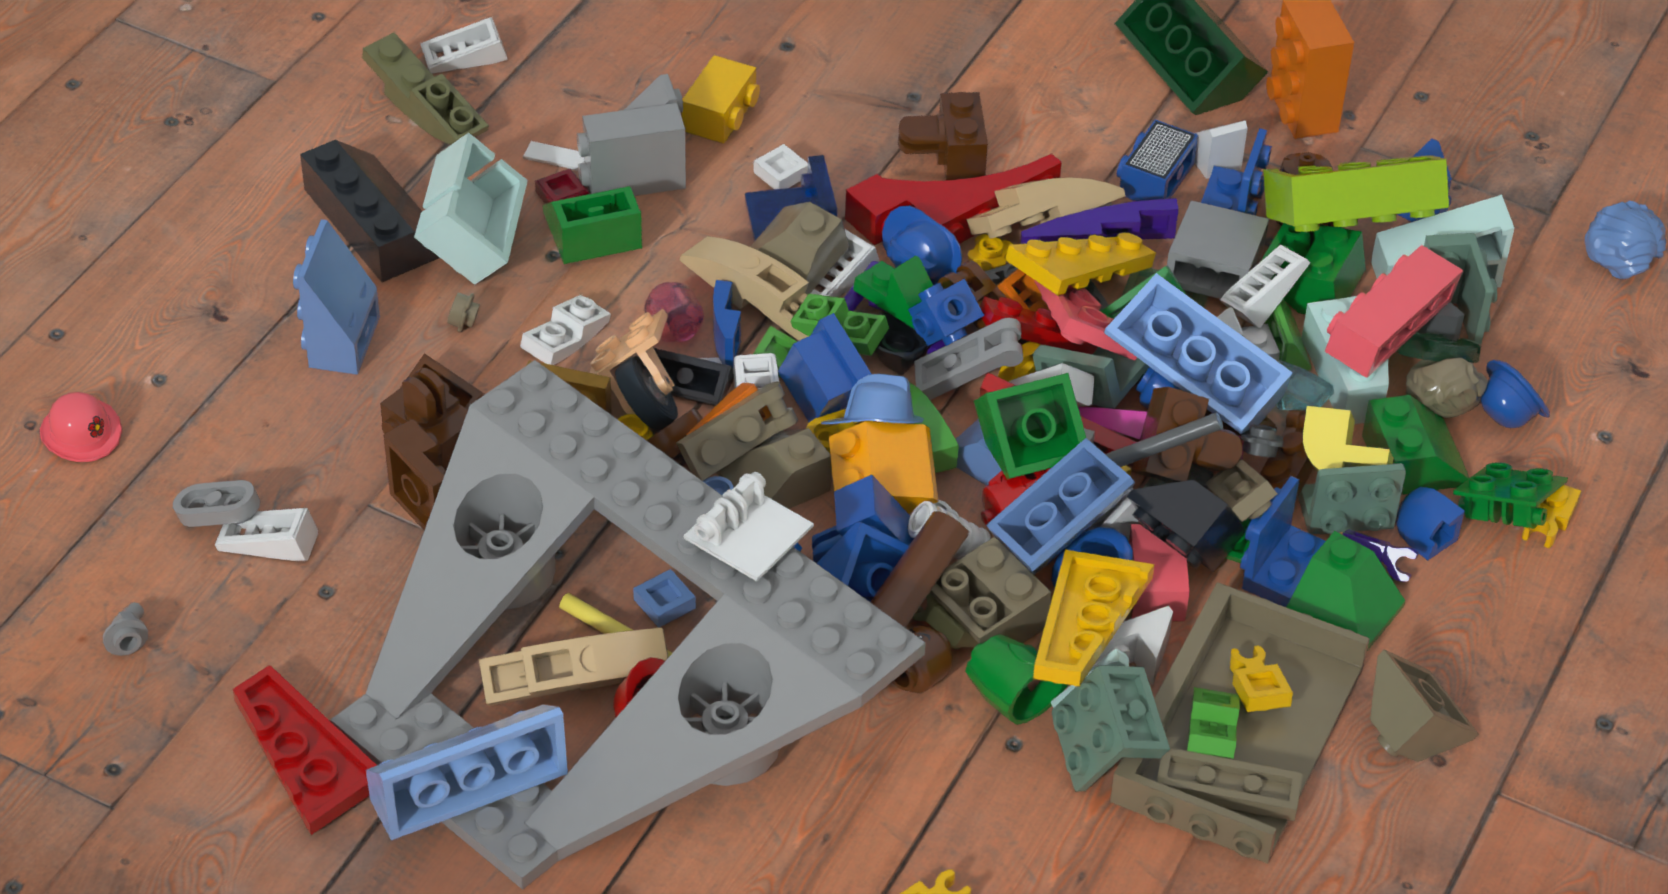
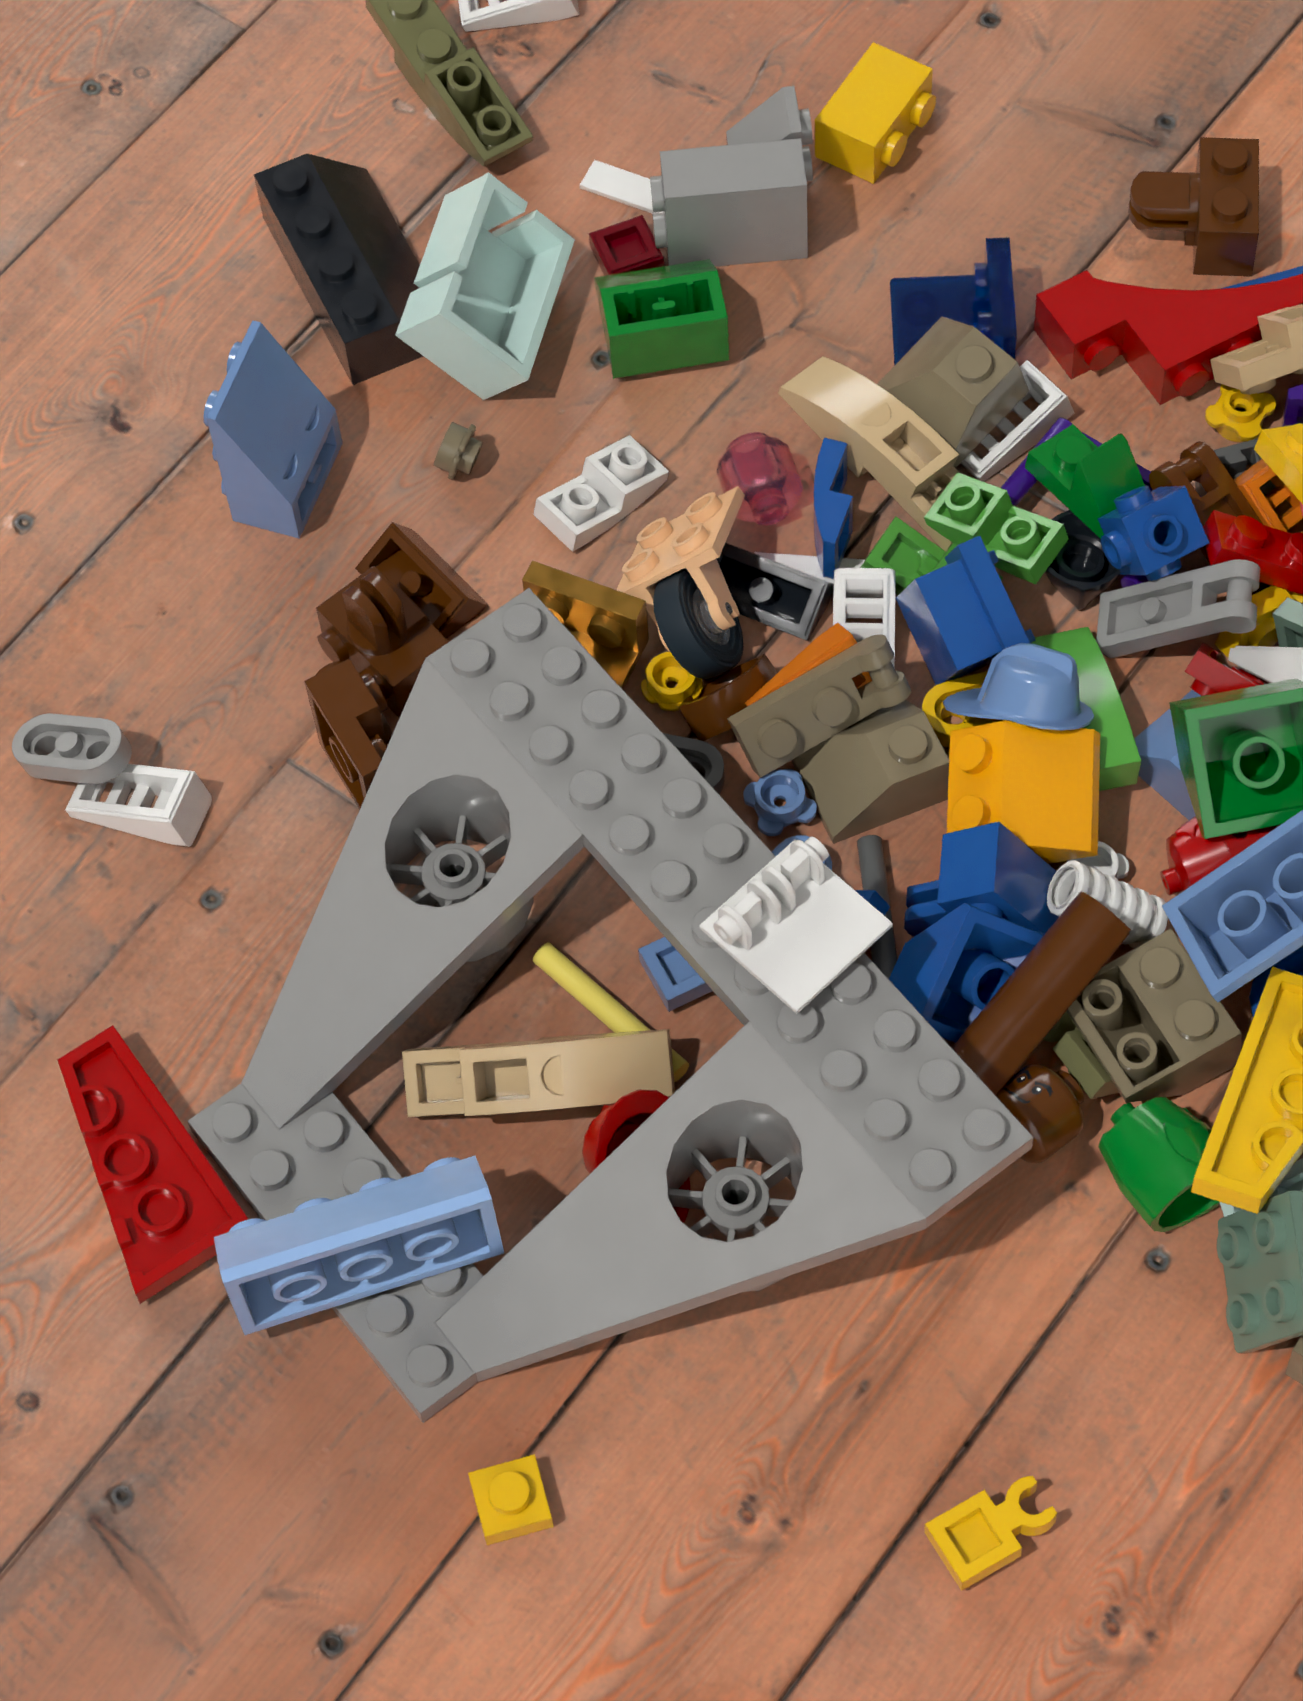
camera: 15 degrees right, 15 degrees up
(780, 167) = (949, 239): white plate -> none
(913, 233) = (1135, 399): blue piece -> none

